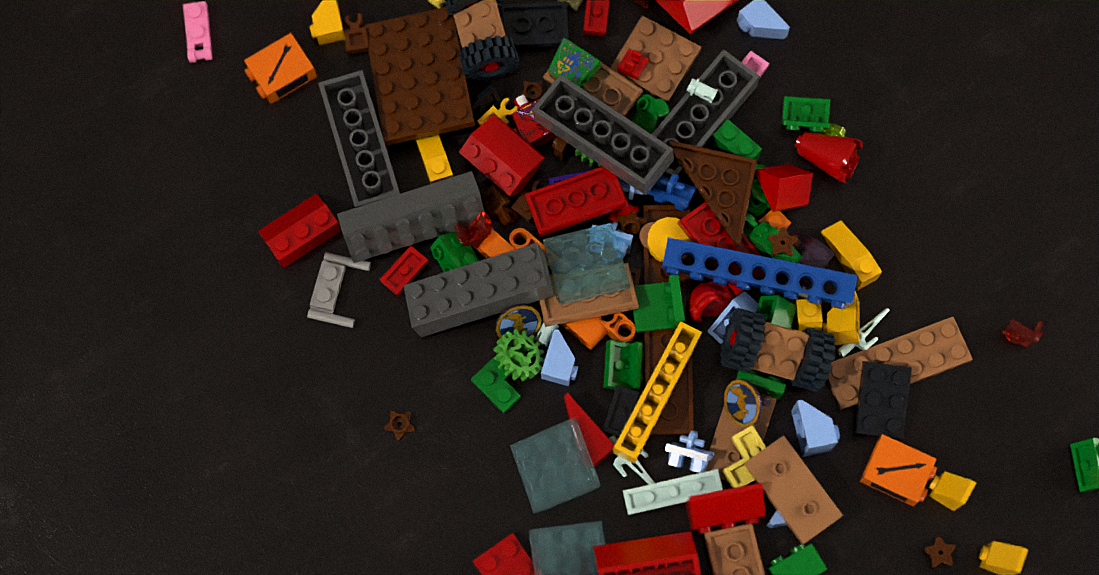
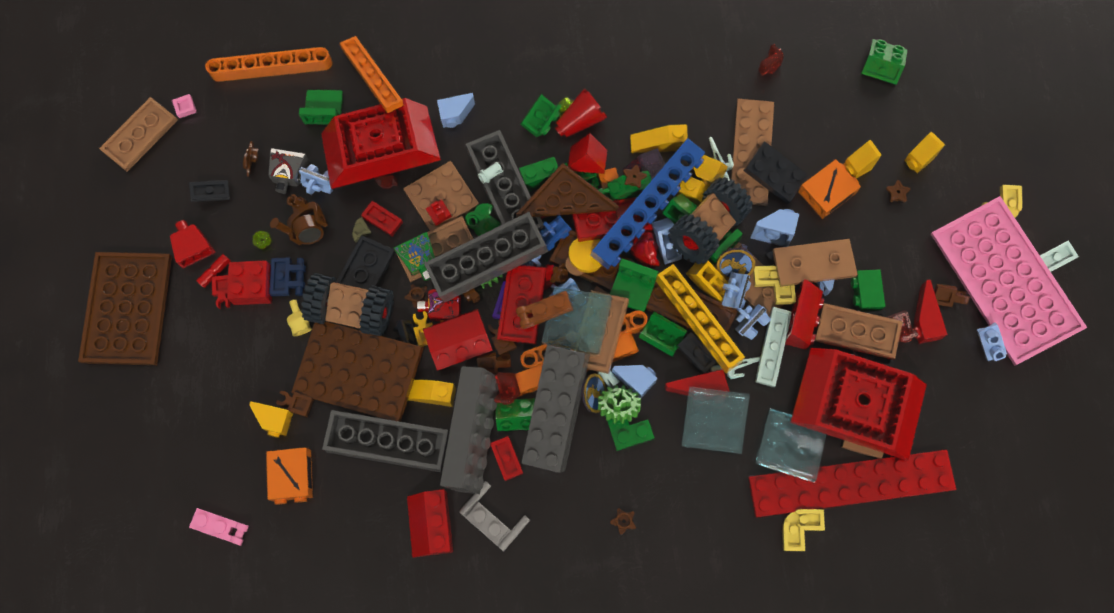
camera: 60 degrees left, 0 degrees up
(578, 224) = (544, 310): none -> dark orange plate
(709, 396) = (708, 280): none -> yellow slope
(713, 417) = (735, 290): none -> light blue hips
(755, 63) = (484, 130): bright pink plate -> none

